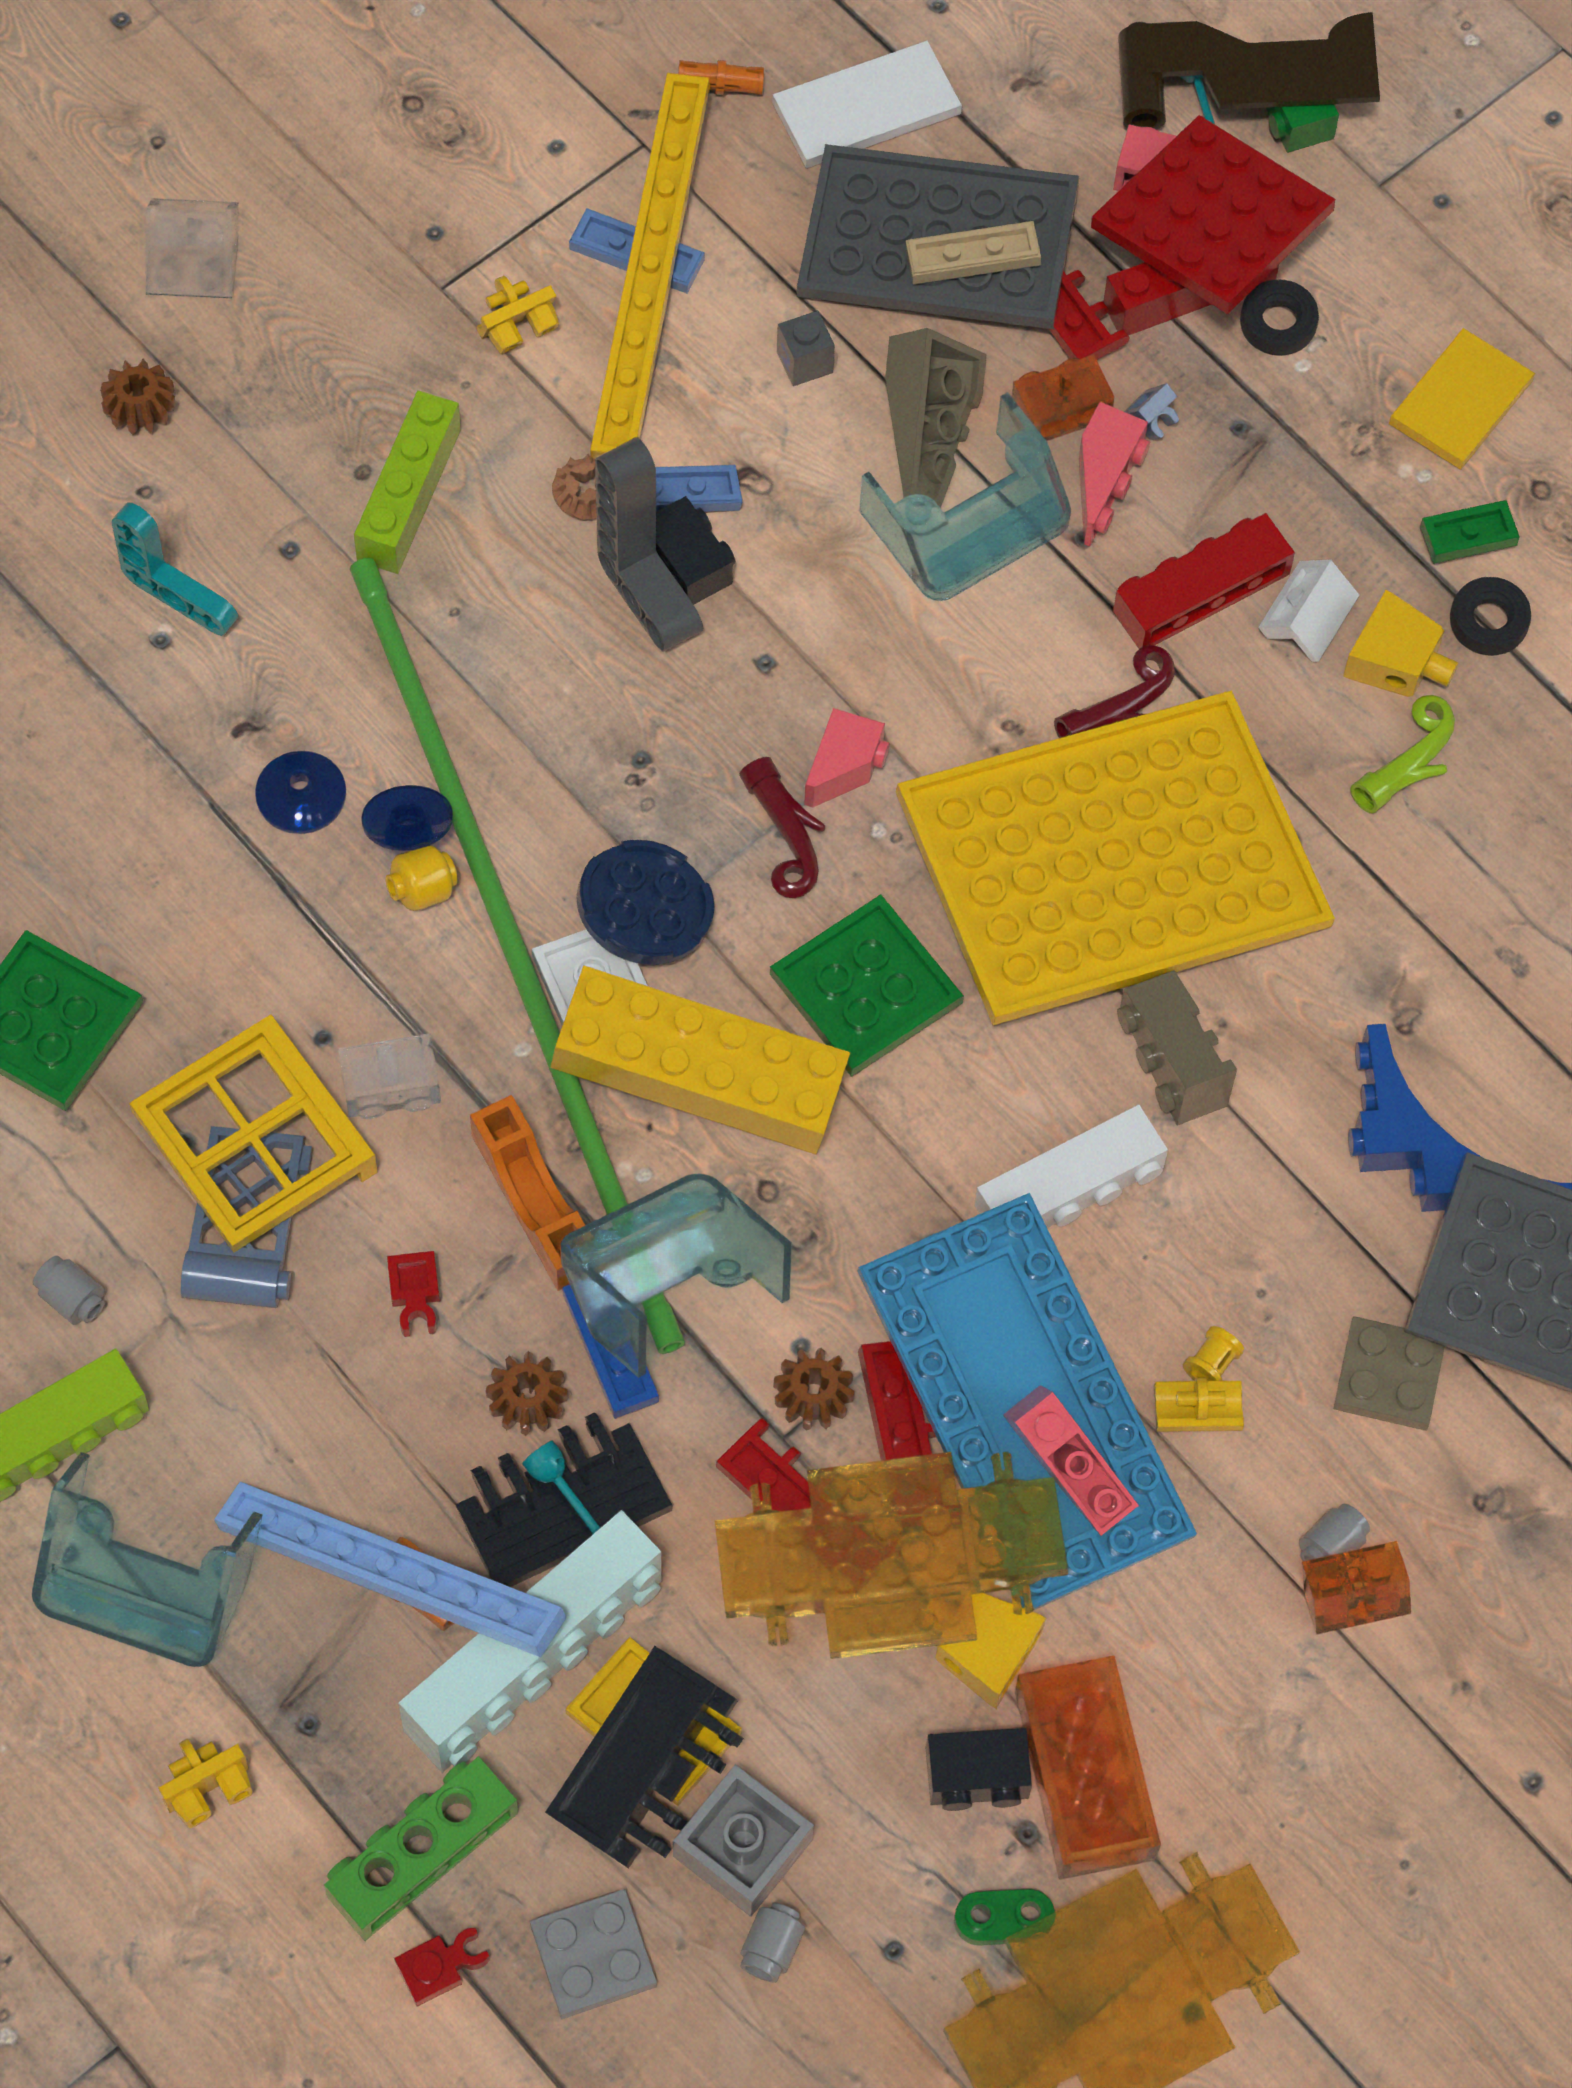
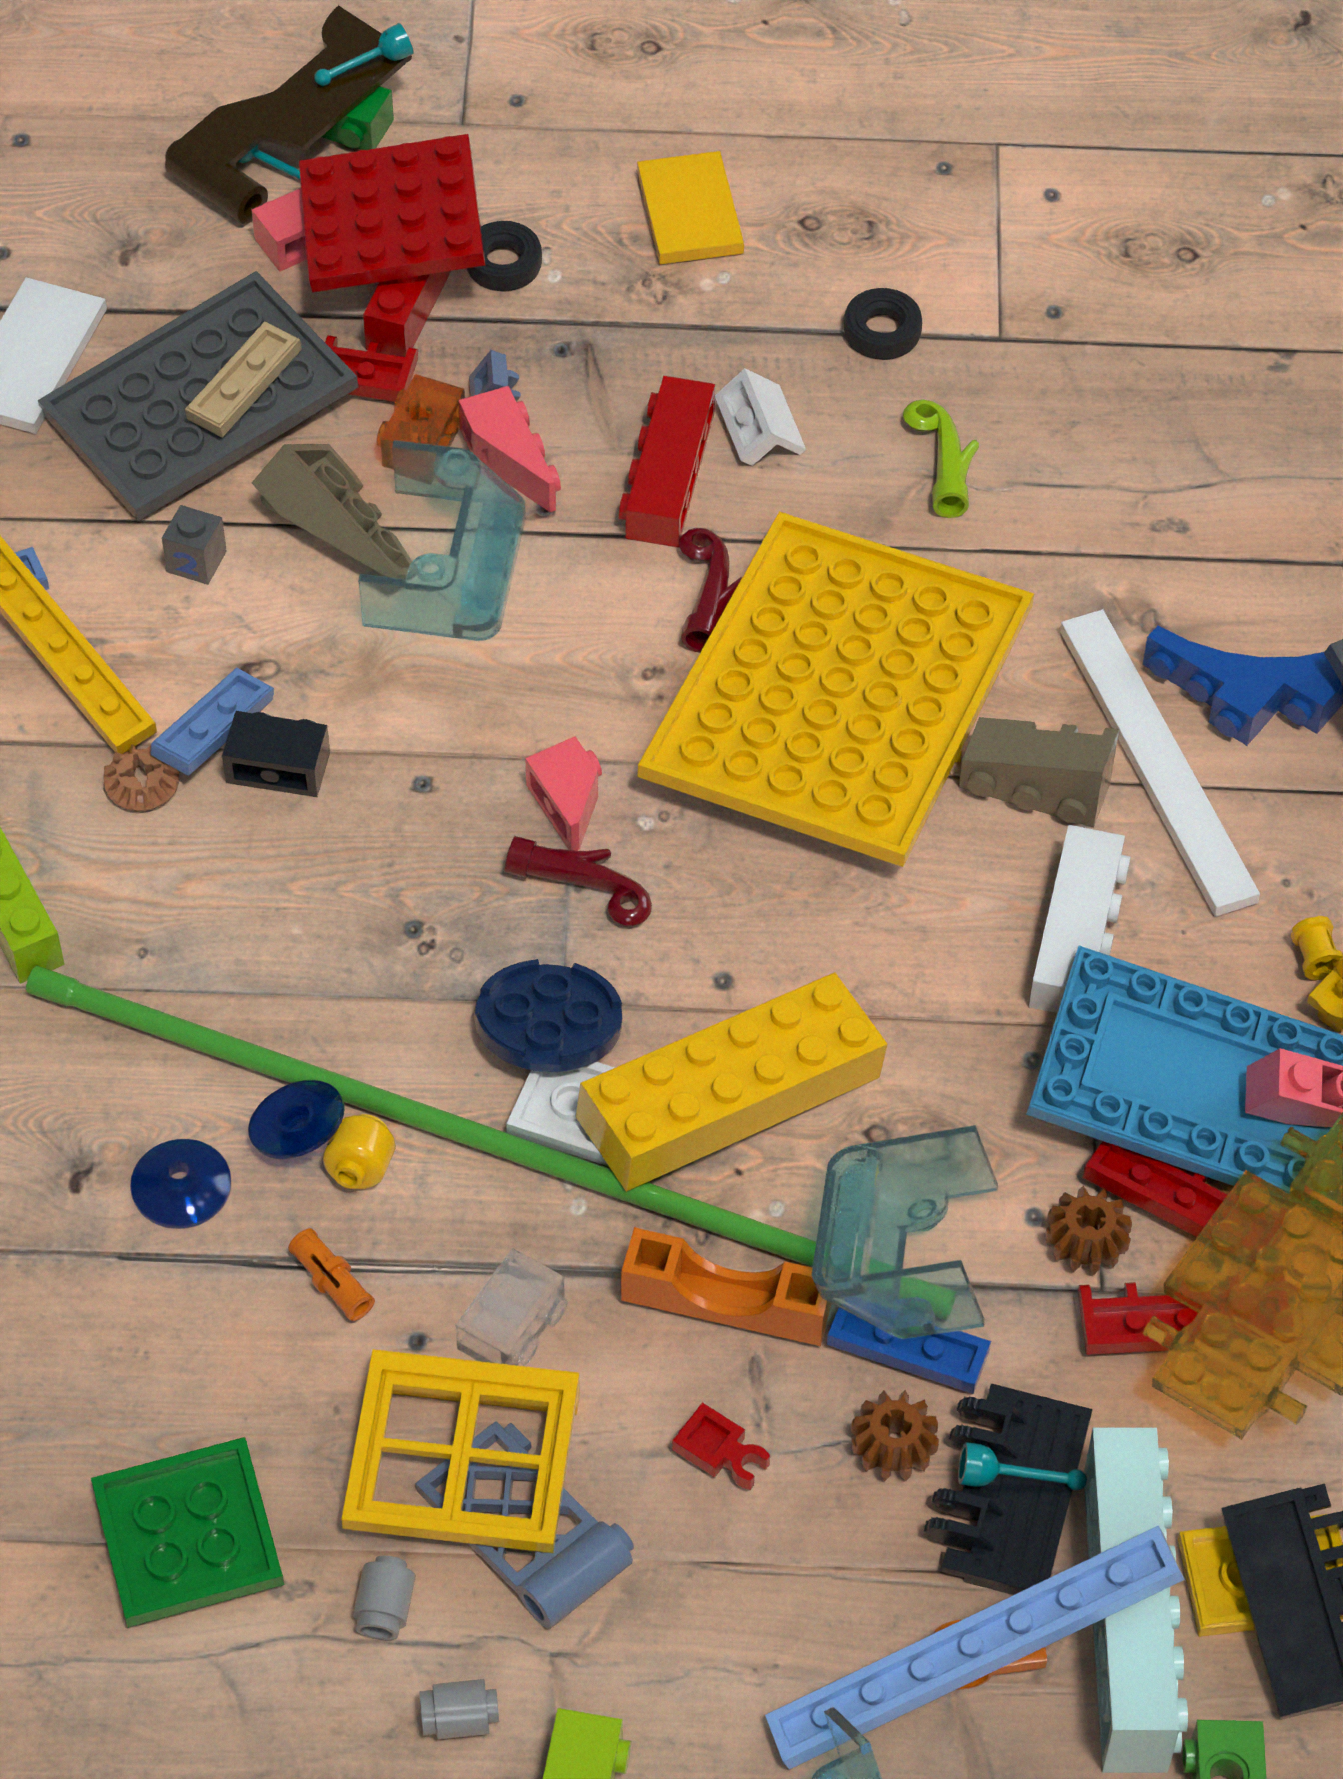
camera: 45 degrees left, 10 degrees down
(107, 1178) = (383, 1598): none -> light grey brick
(315, 942) = (342, 1285): none -> orange pin
(628, 545) = (235, 786): dark grey beam -> none
(866, 984) = (772, 924): green plate -> none
(1277, 1123) = (1160, 764): none -> white tile
(1367, 79) = (392, 44): none -> teal hinge
(1399, 649) = (853, 391): yellow torso -> none
(1469, 531) = (803, 282): green plate -> none

